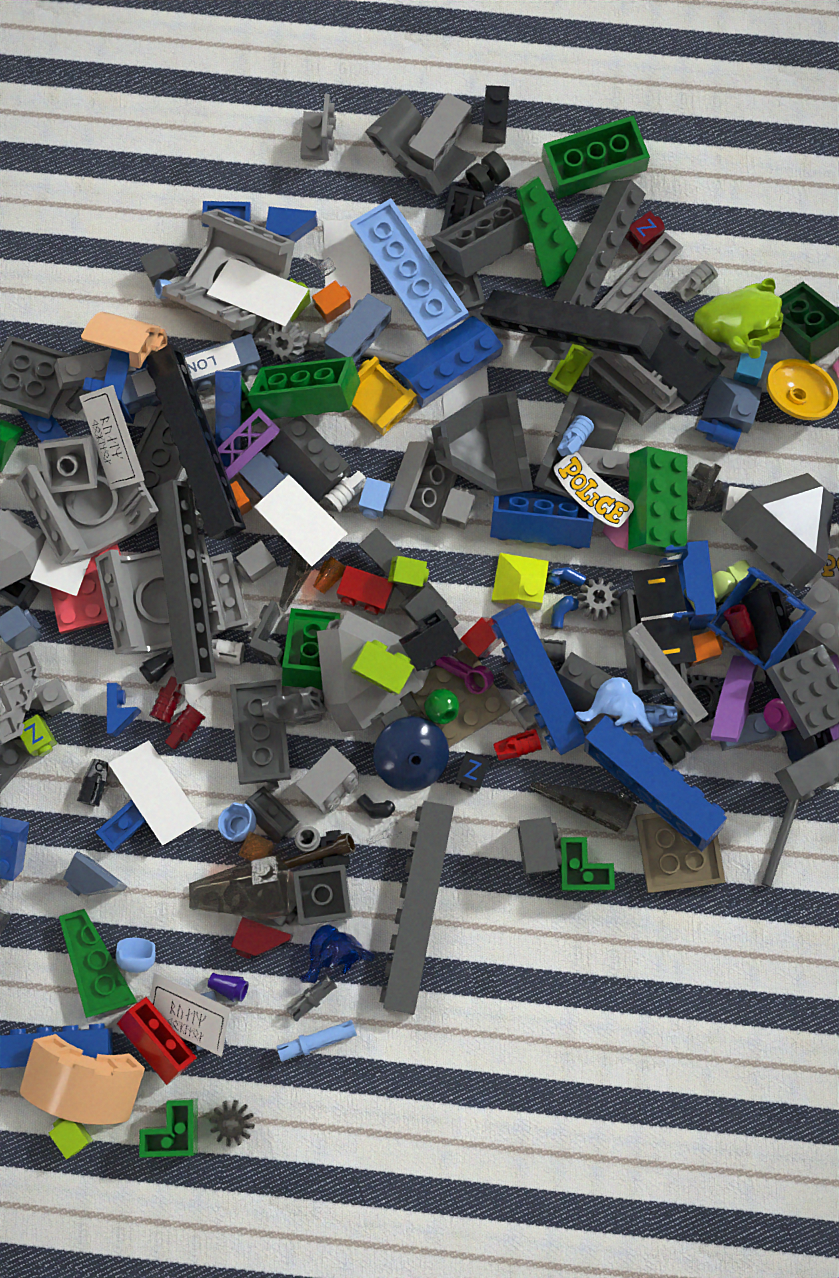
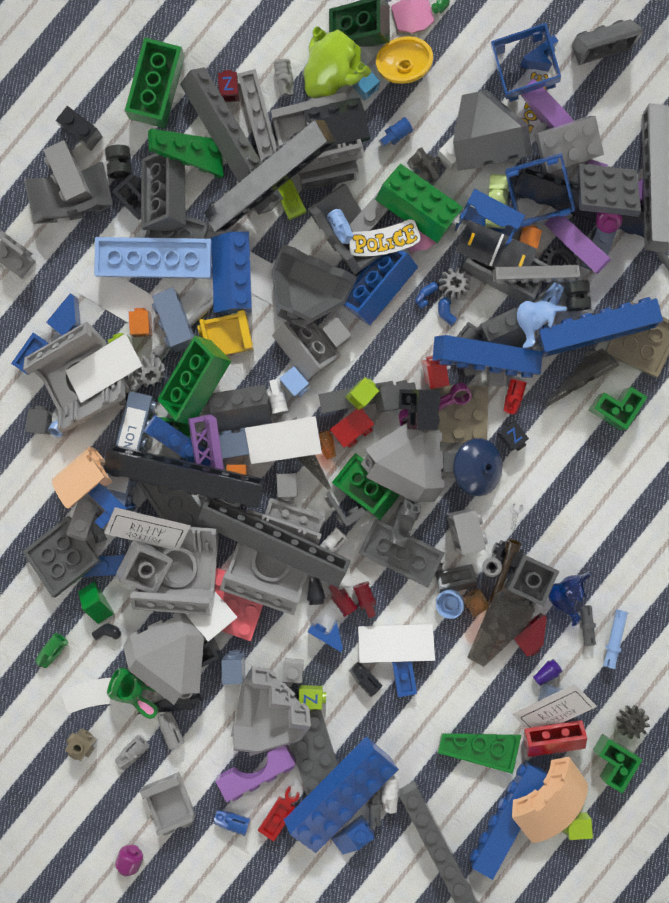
camera: 65 degrees left, 10 degrees up
(90, 878) = (428, 716): sand blue slope -> none
(135, 954) = (492, 718): light blue hair -> none
(326, 267) = (113, 311): clear hand -> none
(376, 810) = (497, 511): black arm -> none
(382, 667) = (423, 452): lime brick -> none
(418, 907) = (575, 524): dark grey brick -> none
(441, 706) = (462, 428): green piece -> none
(520, 581) = (409, 324): neon yellow slope -> none
(538, 846) = (589, 426): dark grey brick -> none
(732, 403) = (383, 110): sand blue slope -> none
(741, 626) = (533, 206): dark red hinge -> none

